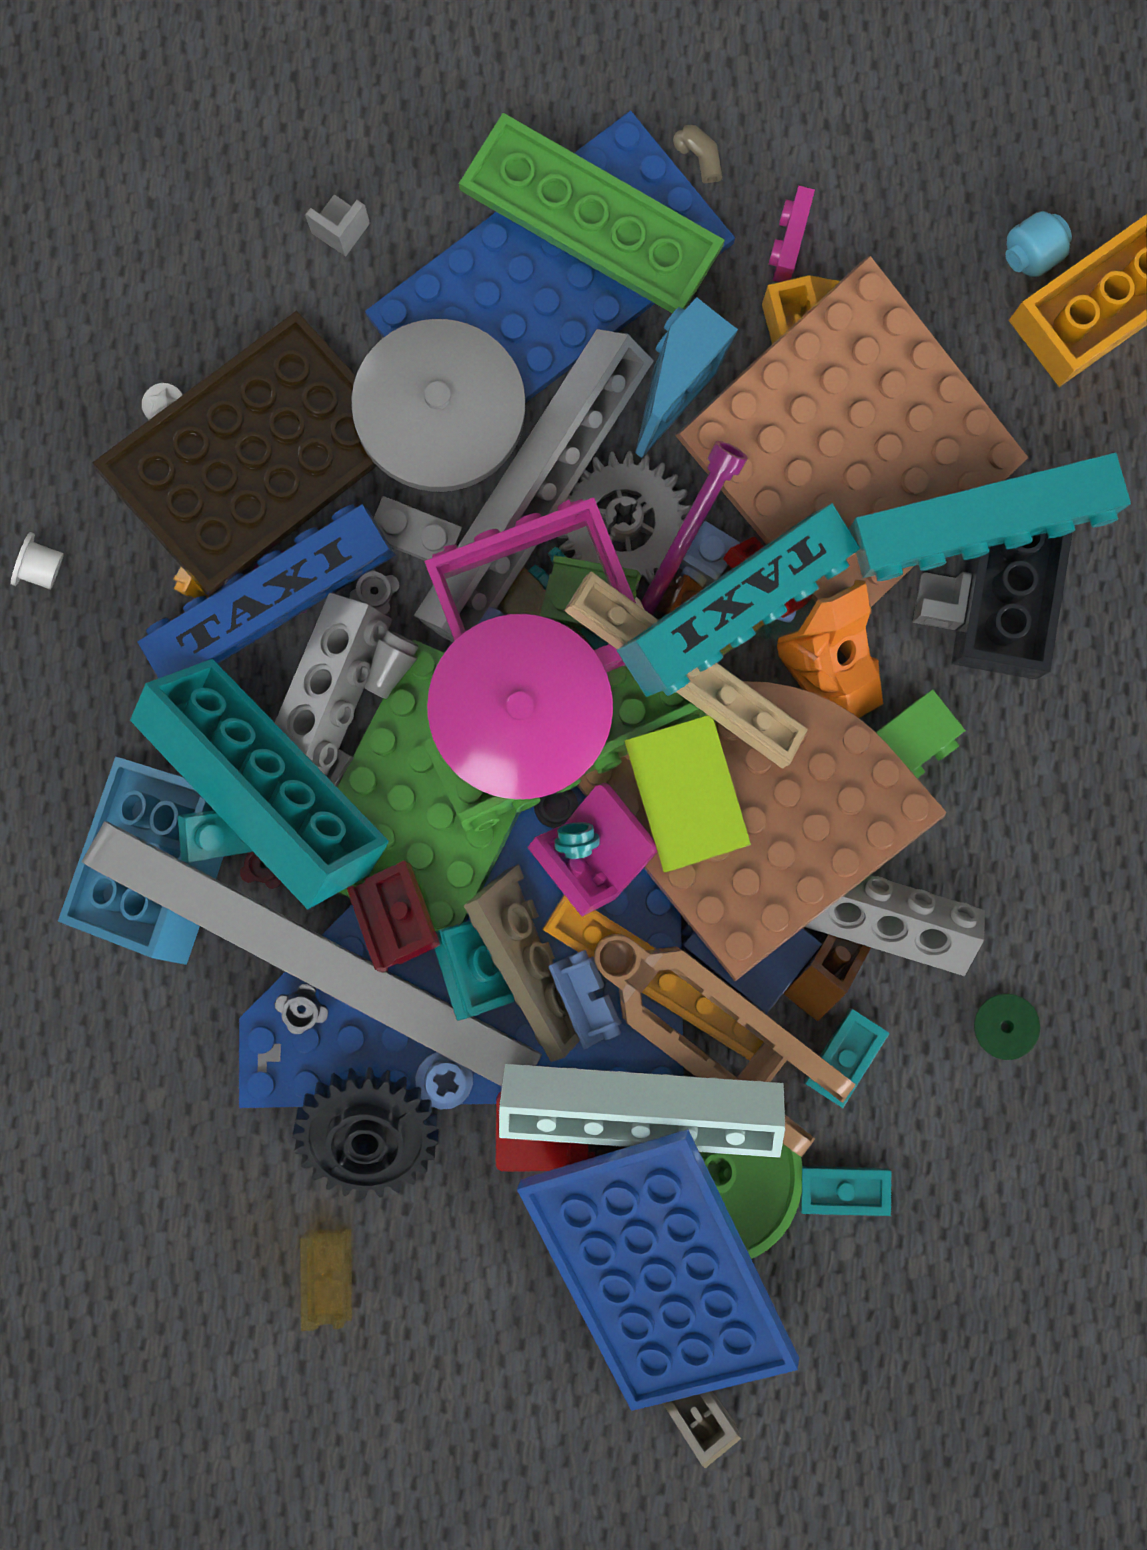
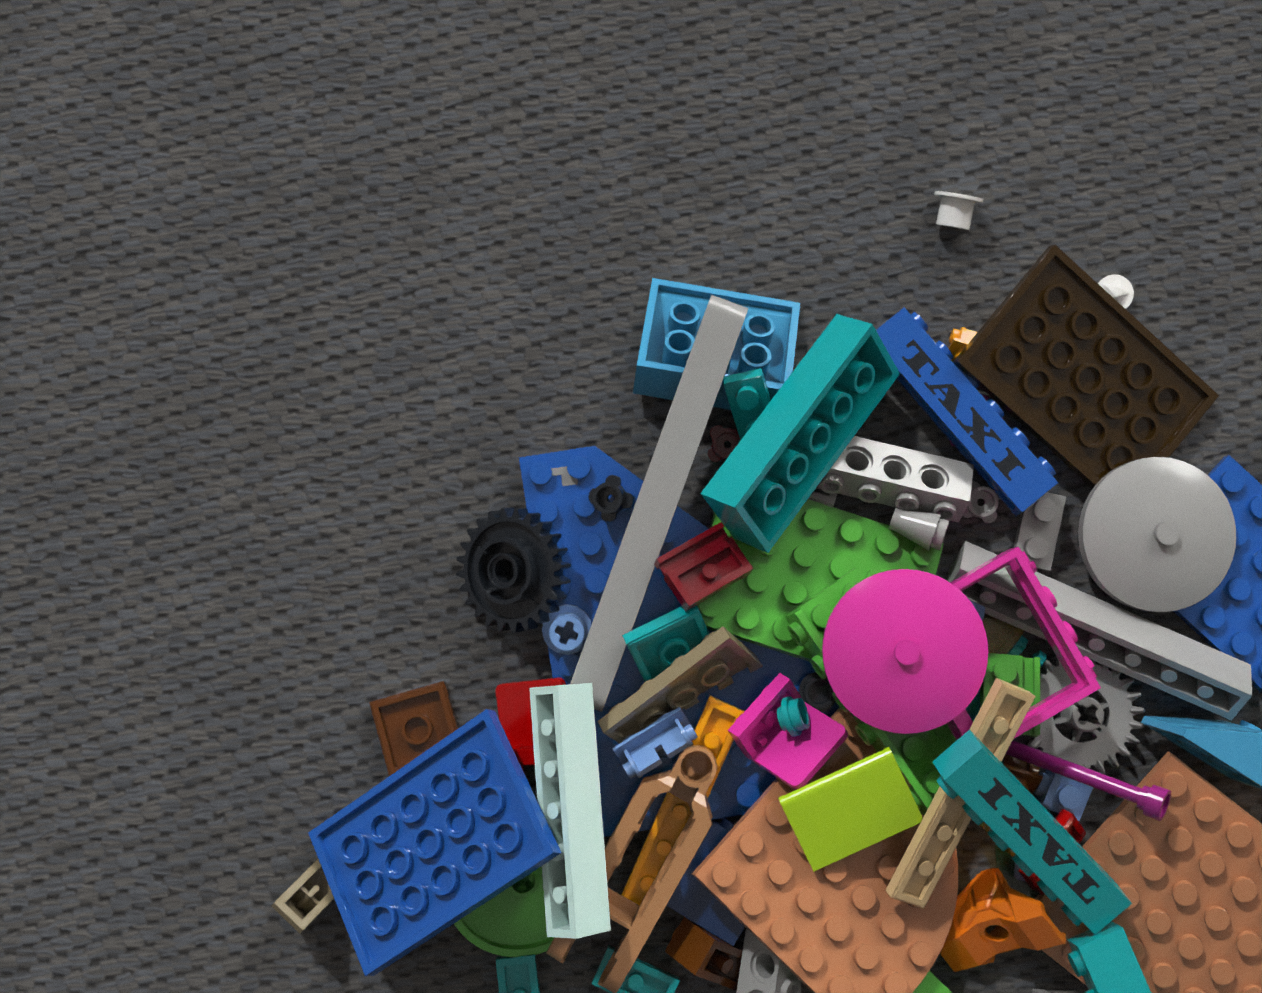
camera: 80 degrees right, 0 degrees up
(326, 1278) = (385, 553): clear yellow hinge -> none
(522, 1272) = (412, 723): none -> reddish brown tile

